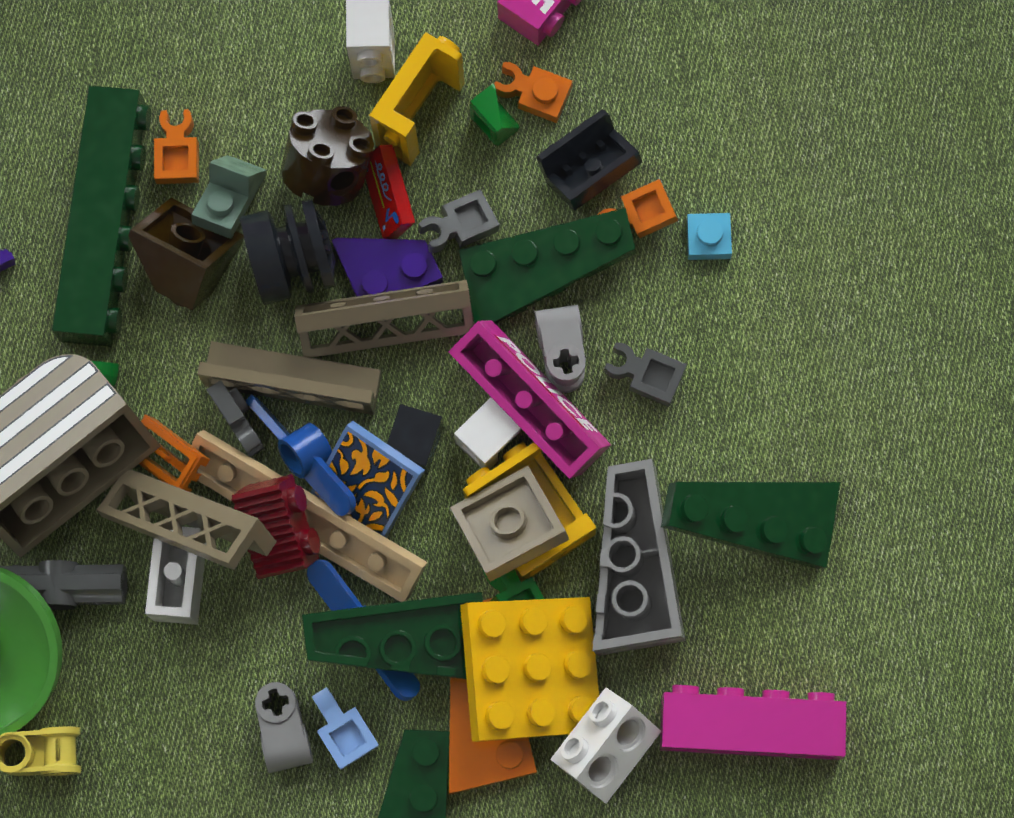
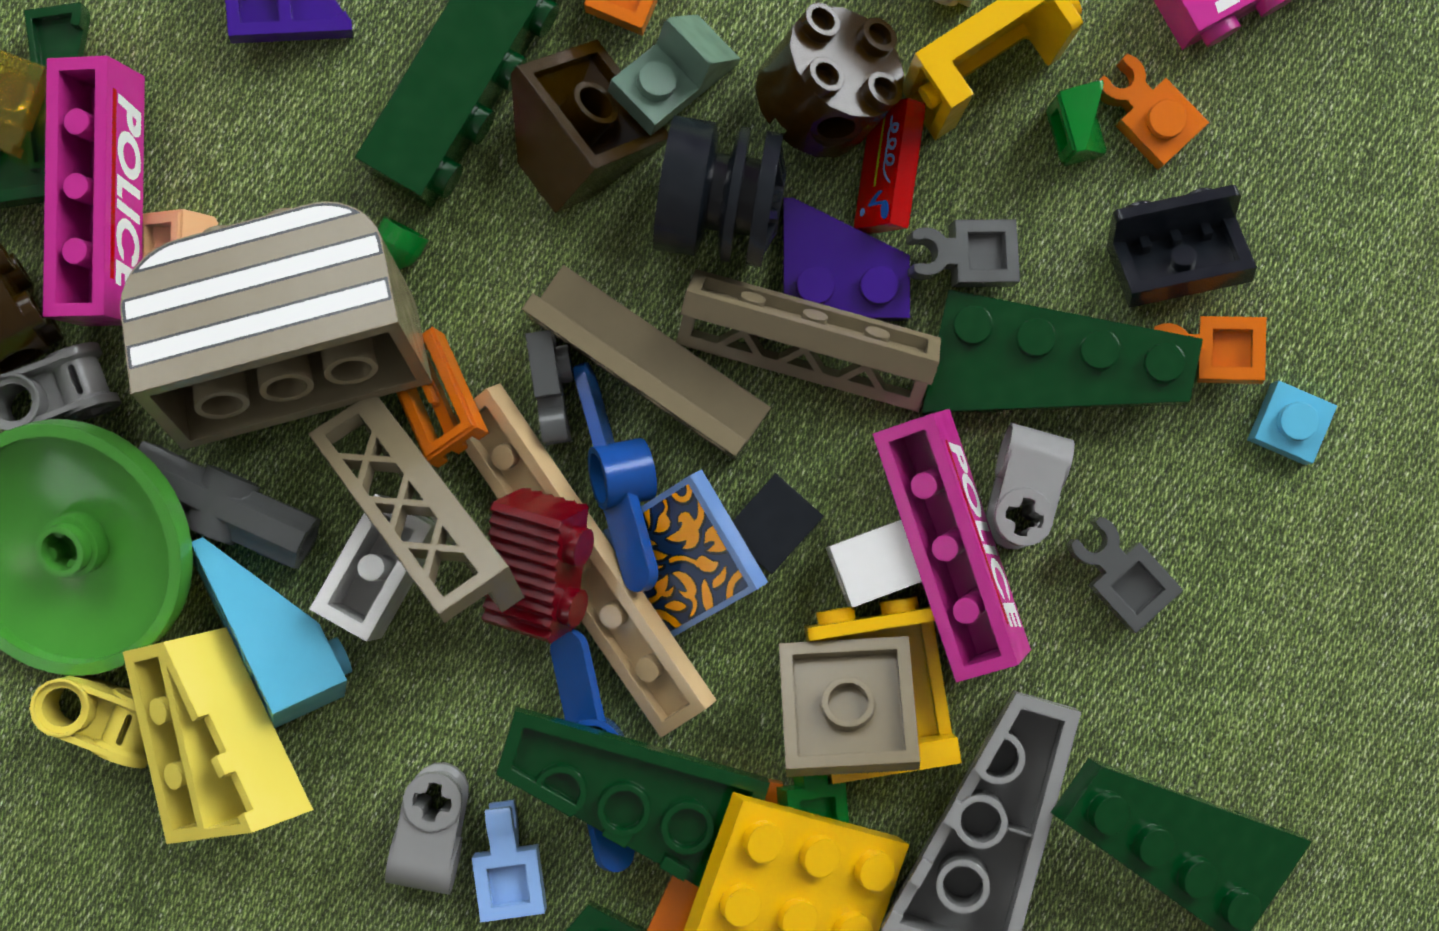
camera: 20 degrees right, 10 degrees up
(115, 728) = (209, 740): none -> light yellow wedge
(127, 650) = (276, 640): none -> medium azure slope

